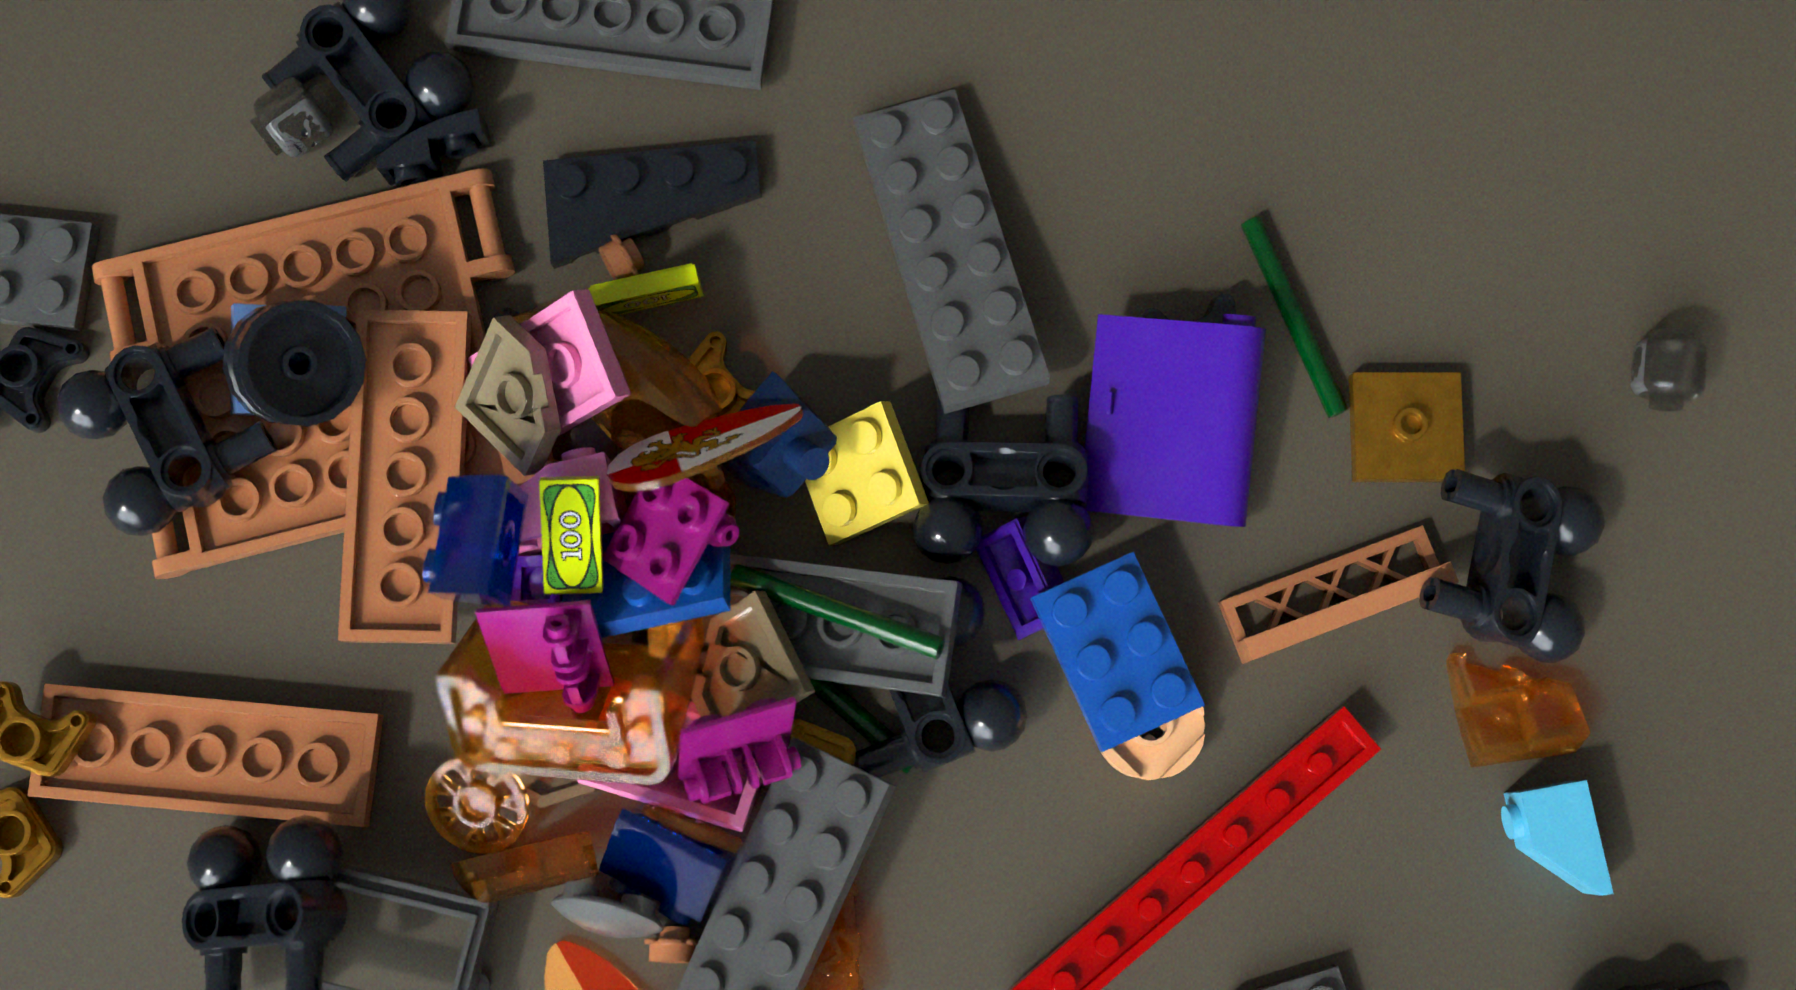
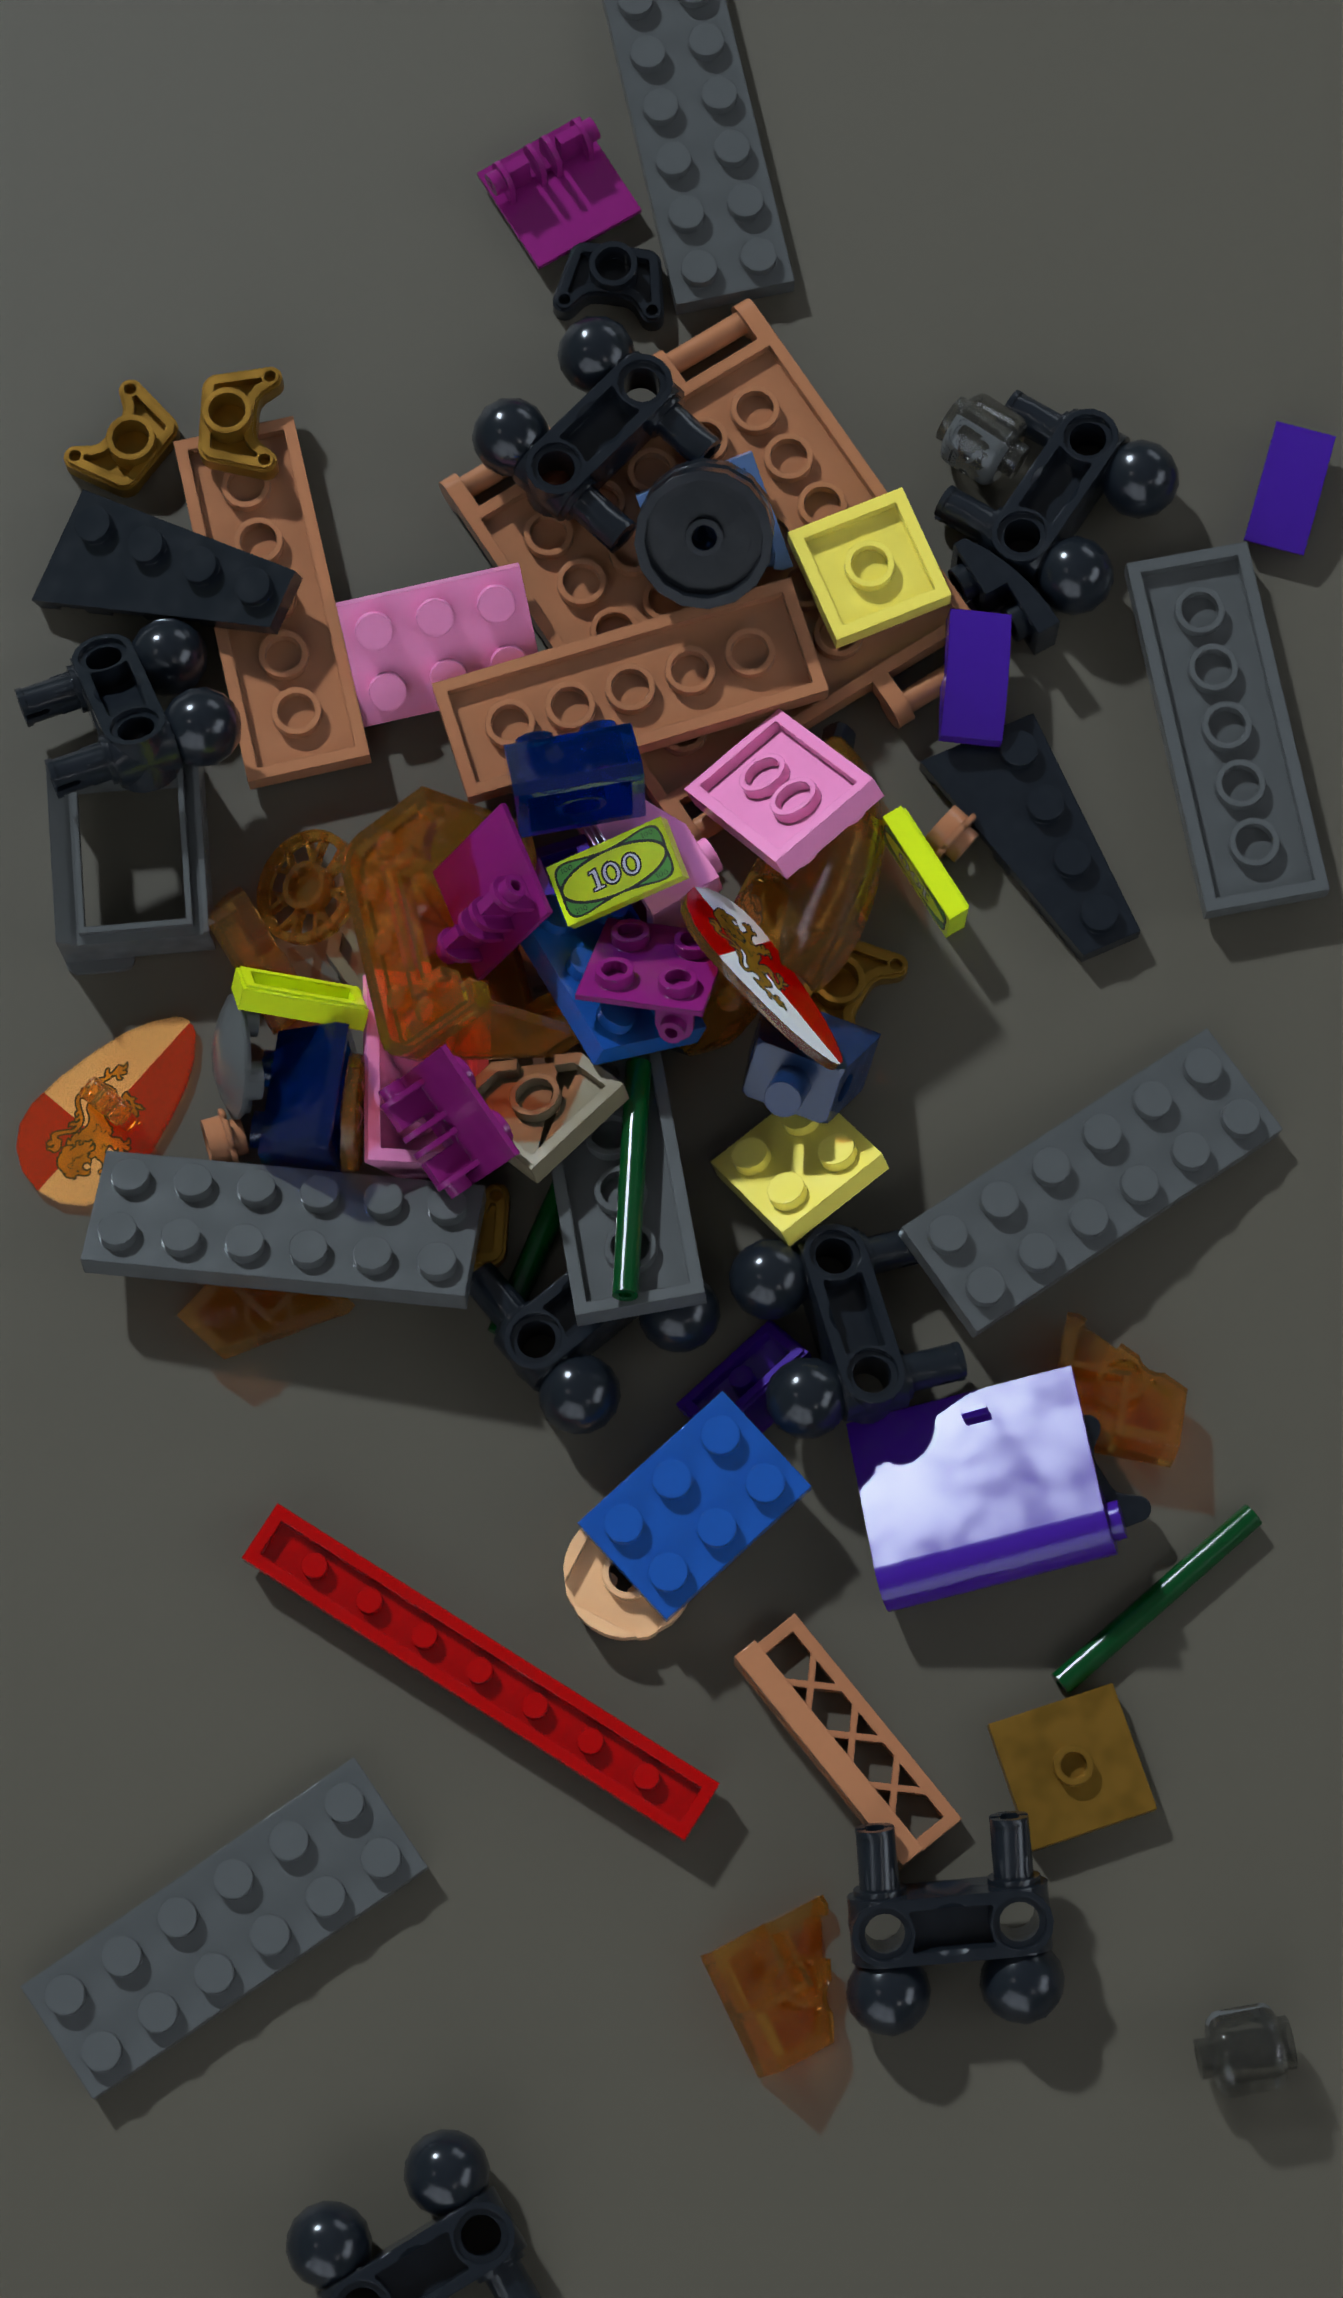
camera: 75 degrees right, 5 degrees down
(131, 859) = (151, 568): none -> black wing
(292, 626) = (432, 633): none -> bright pink plate
(371, 244) = (869, 567): none -> light yellow plate
(498, 191) = (975, 677): none -> dark purple slope
(512, 396) = (746, 762): dark tan plate -> none
(580, 843) = (299, 997): none -> neon yellow tile
(1138, 279) = (1135, 1406): none -> clear orange slope
(1560, 832) = (657, 2071): medium azure slope -> none

